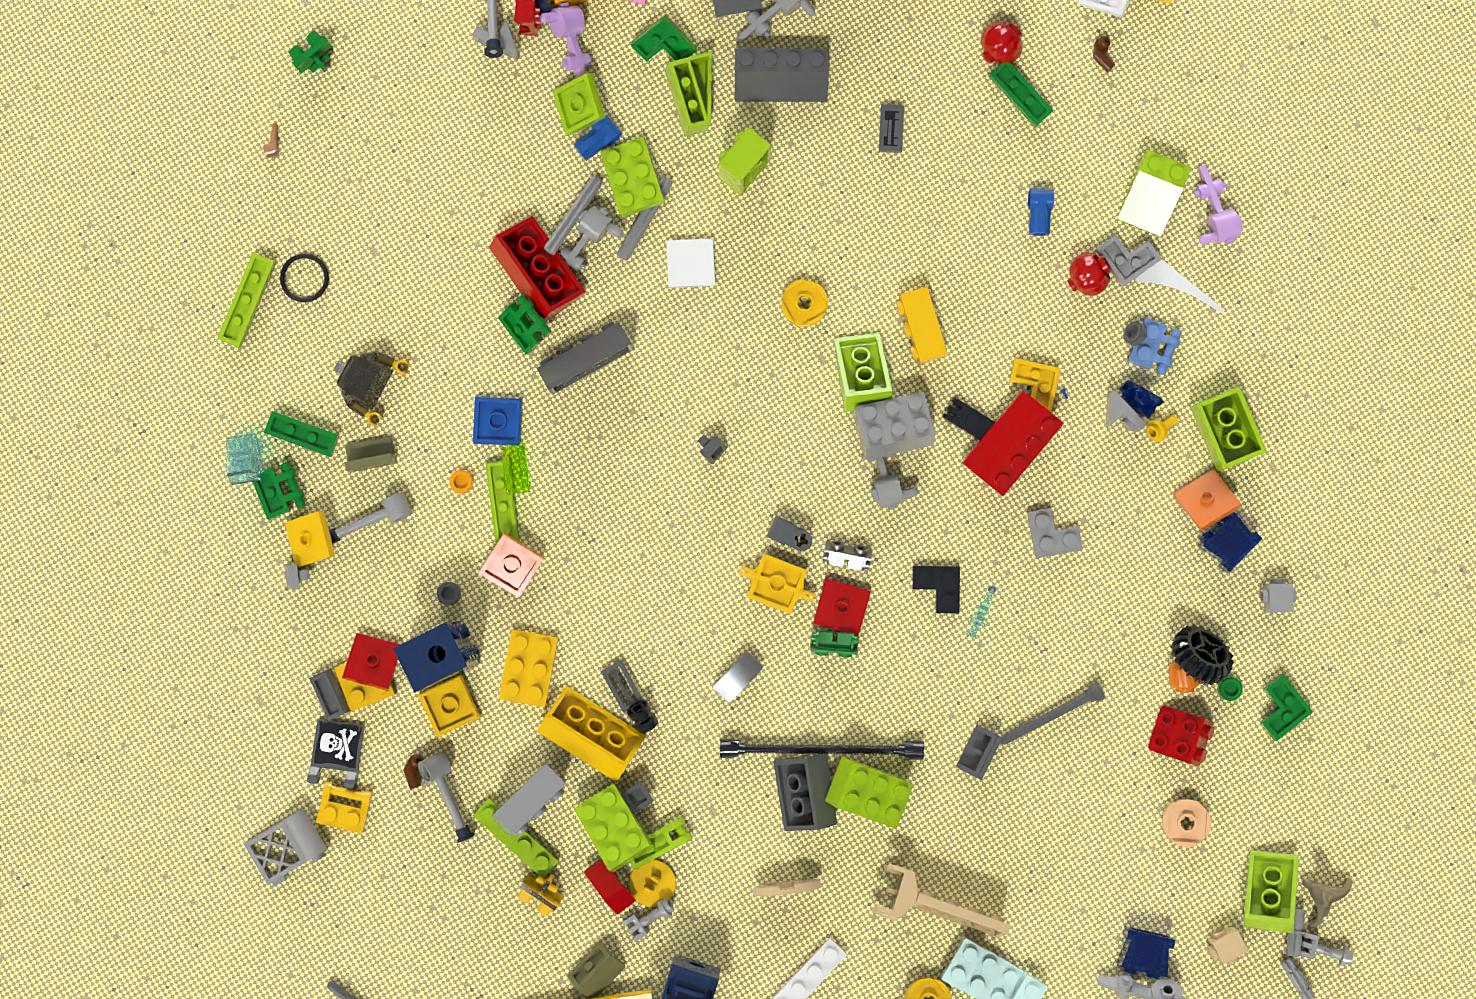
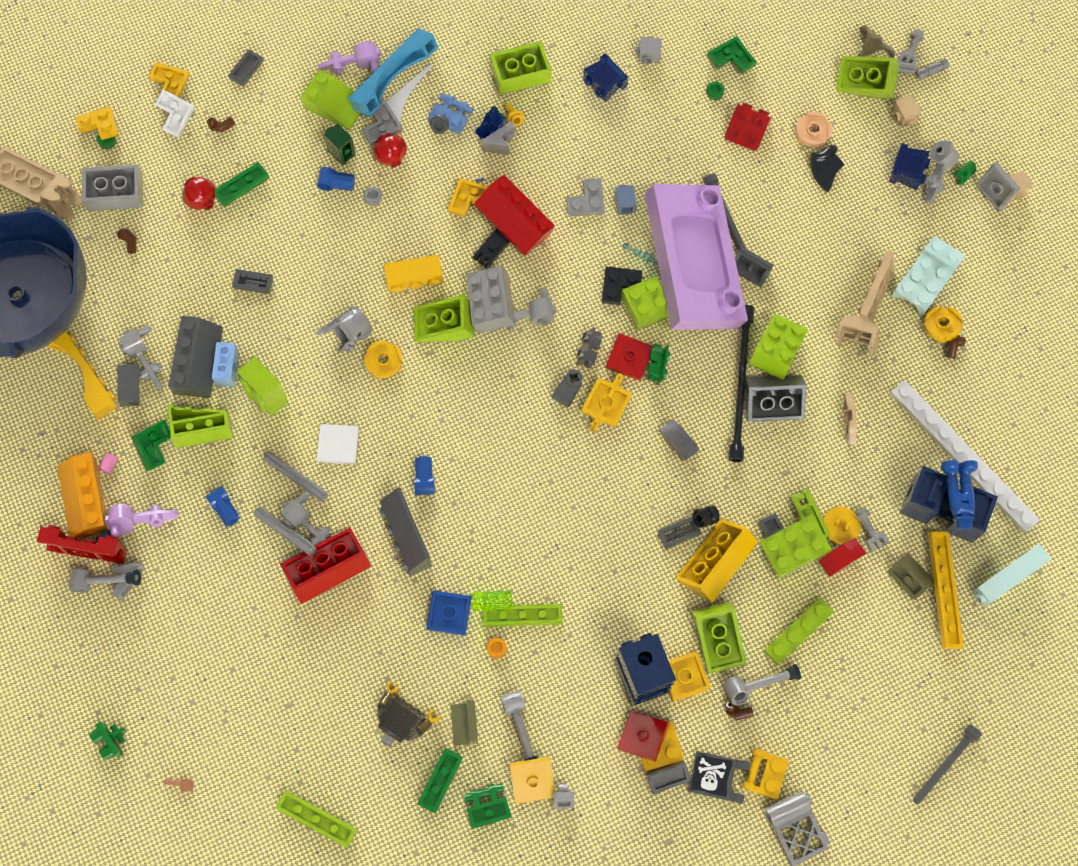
camera: 90 degrees left, 15 degrees down
(243, 458) = (456, 831): clear light blue brick -> none
(287, 264) = (284, 766): black tyre -> none
(449, 593) = (590, 667): dark grey tile -> none
(498, 742) = (719, 637): none -> lime slope
(511, 564) = (571, 610): plate -> none
(520, 327) = (372, 584): green plate -> none
(528, 668) = (658, 607): yellow plate -> none
(529, 801) = (770, 610): light grey brick -> none
(542, 891) = (843, 611): yellow hips -> none
(578, 104) = (192, 516): lime plate -> none
(632, 177) = (260, 481): lime plate -> none
(652, 372) = (424, 478): none -> blue piece
(712, 448) = (492, 441): dark grey tile -> none
(775, 112) = (225, 364): none -> light blue brick
(839, 257) = (349, 328): none -> light grey helmet
(914, 622) = (645, 302): none -> lime brick
(980, 679) = (695, 257): none -> lavender piece
(1025, 261) = (373, 196): none -> light grey tile
(1055, 583) = (625, 199): none -> sand blue brick
(1087, 208) = (339, 144): none -> dark green brick
(1135, 841) = (825, 166): none -> black arm
(1180, 681) = (702, 118): orange head -> none
(1189, 73) = (246, 68): none -> dark grey tile
(1202, 654) = (689, 101): black gear -> none
(1207, 500) = (572, 88): orange plate -> none
(1240, 289) = (413, 50): none -> dark azure arch

